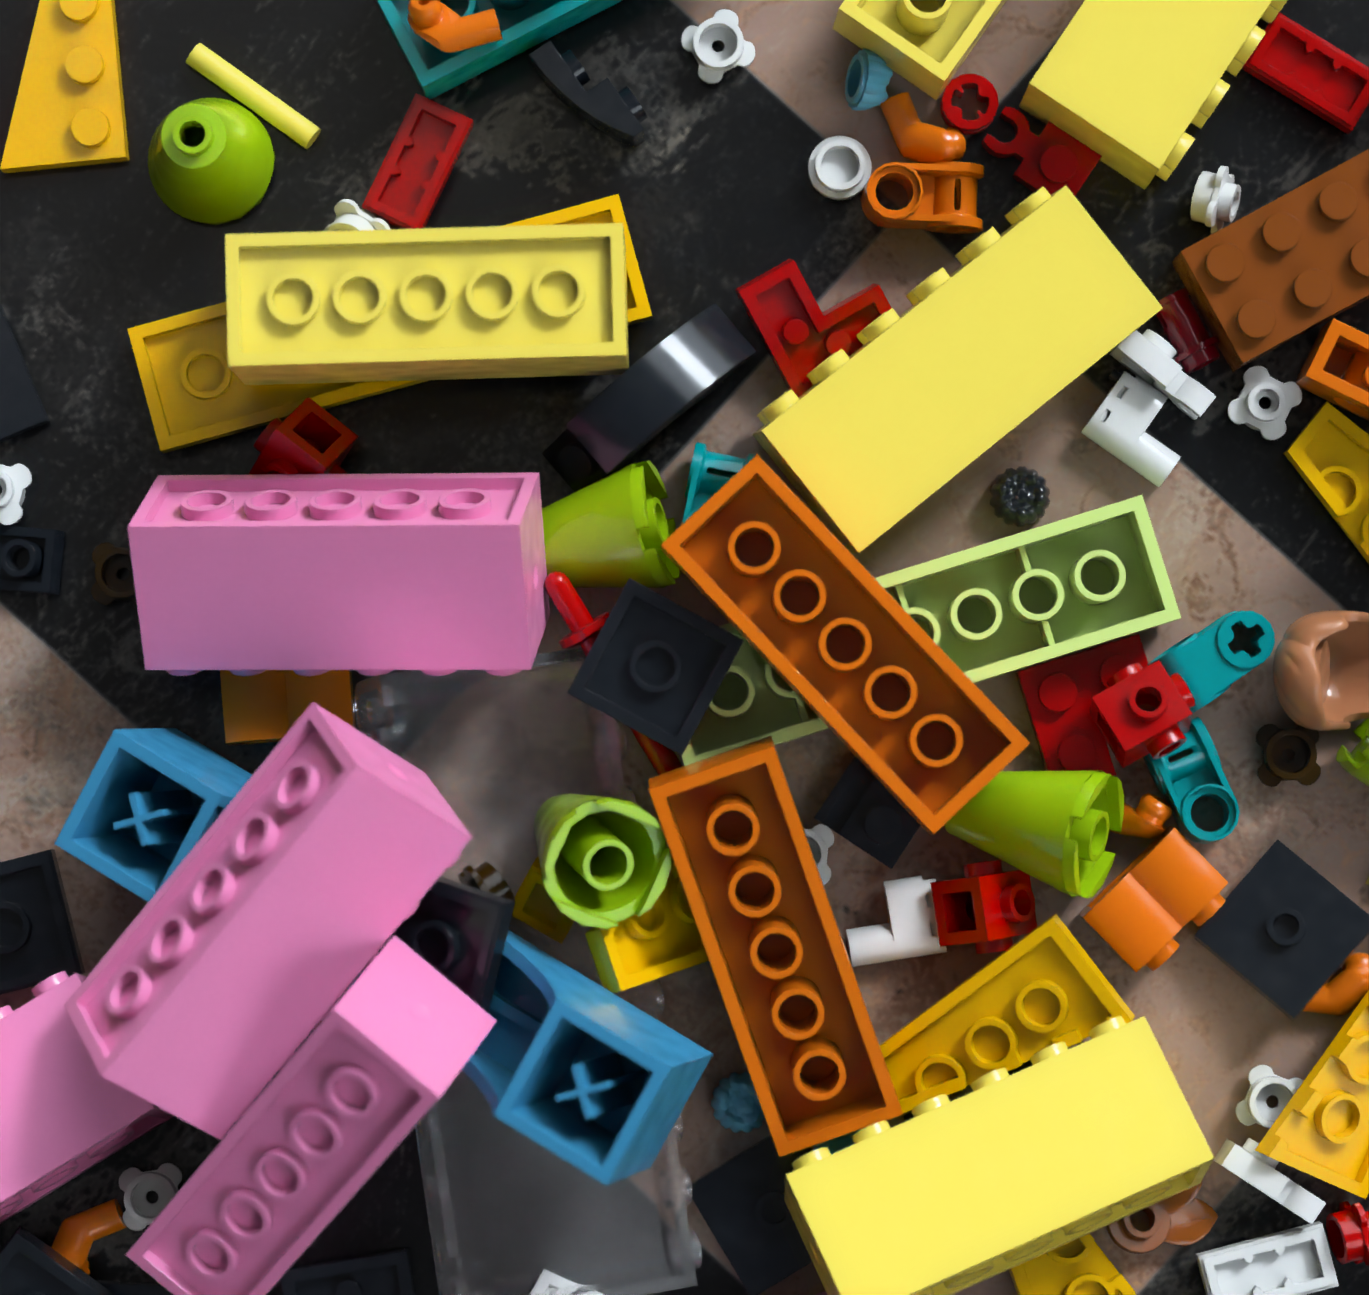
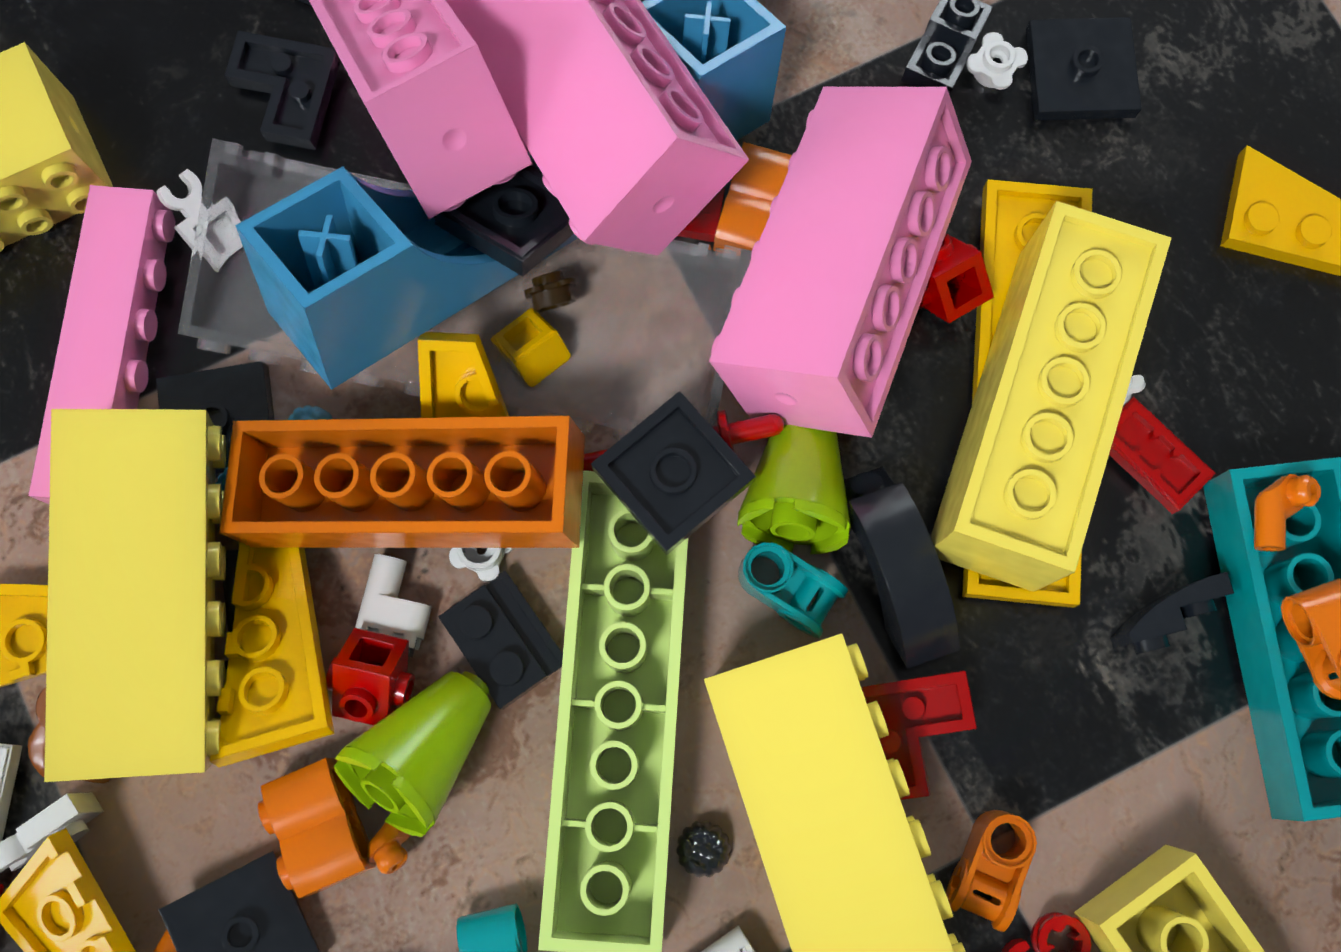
camera: 110 degrees right, 10 degrees down
(211, 160) = (1216, 292): lime cone -> none
(253, 95) = (1247, 352): light yellow piece -> none
(600, 857) = (533, 362): lime cone -> none
(721, 28) = (1195, 739): white plate -> none
(839, 167) = (1041, 802): white plate -> none
(844, 645) = (625, 632): orange brick -> none
(867, 80) = (1110, 857): medium azure piece -> none
(917, 139) = (1044, 883): orange arm -> none
(1060, 704) = (516, 822): red plate -> none
(1143, 712) = (455, 865): red brick -> none
(1195, 777) = (404, 903): teal piece -> none
(1262, 1085) = (128, 861): white plate -> none

